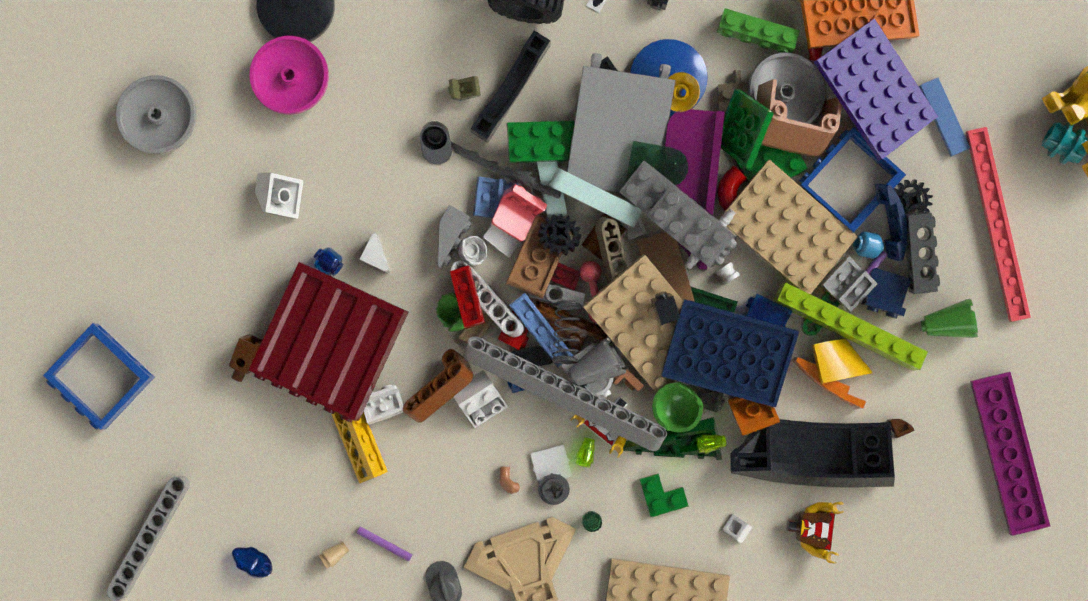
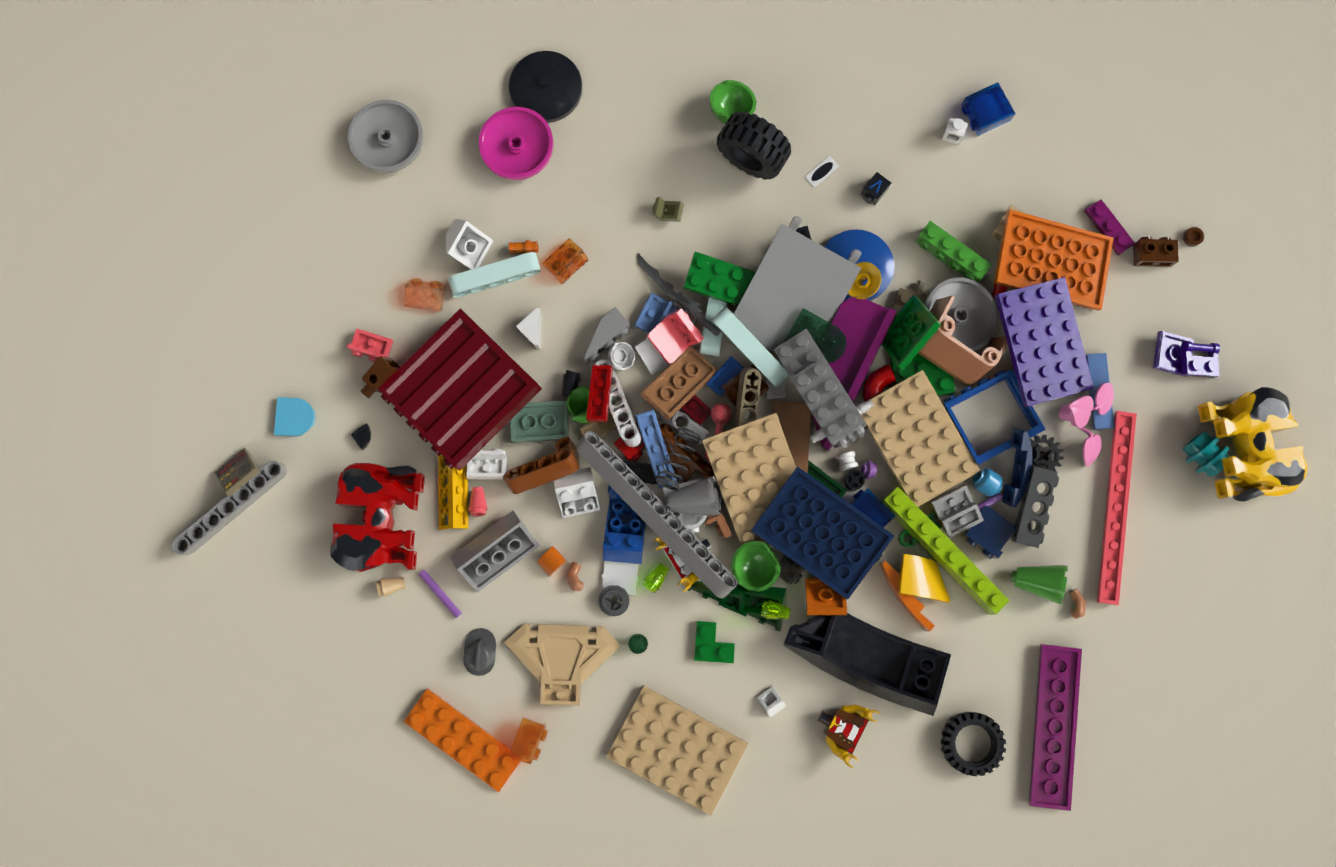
camera: 25 degrees right, 5 degrees down
(118, 350) = (284, 360): blue window -> none
(141, 500) = (237, 472): none -> tile
(174, 426) = (293, 417): none -> medium azure tile
(222, 329) = (370, 345): none -> coral bracket
(250, 420) = (362, 436): none -> black tile
(252, 562) = (314, 565): clear blue arm -> none
(256, 259) = (424, 294): none -> clear orange bracket
(289, 468) = (377, 491): none -> red animal
(317, 214) = (494, 274): none -> light aqua beam
(328, 261) = (487, 318): clear blue head -> none
(337, 176) = (523, 247): none -> orange pin
(382, 175) = (565, 261): none -> clear orange bracket
(387, 443) = (477, 502): none -> coral cone
(419, 343) = (540, 422): none -> sand green plate
(421, 484) = (494, 551): none -> light grey slope
(432, 294) = (569, 382): none -> black cone
(435, 142) = (624, 248): black cap -> none
(480, 473) = (551, 561): none -> orange brick
(504, 98) = (733, 206): black arch -> none
(539, 422) = (623, 534): none -> blue slope
(559, 243) = (705, 369): black gear -> none
(586, 224) = (728, 371): none -> blue plate
(665, 307) = (777, 467): black brick -> none
(743, 287) = (856, 478): none -> black wheel
(751, 274) = (869, 469): none -> medium lavender plate
(900, 427) = (959, 663): reddish brown tile -> none
(934, 149) = (1078, 414): none -> bright pink plant
(962, 502) = (996, 750): none -> black tyre
(994, 328) = (1080, 604): none -> nougat arm
(1002, 55) = (1168, 352): none -> plate
(1031, 57) = (1199, 365): none -> plate

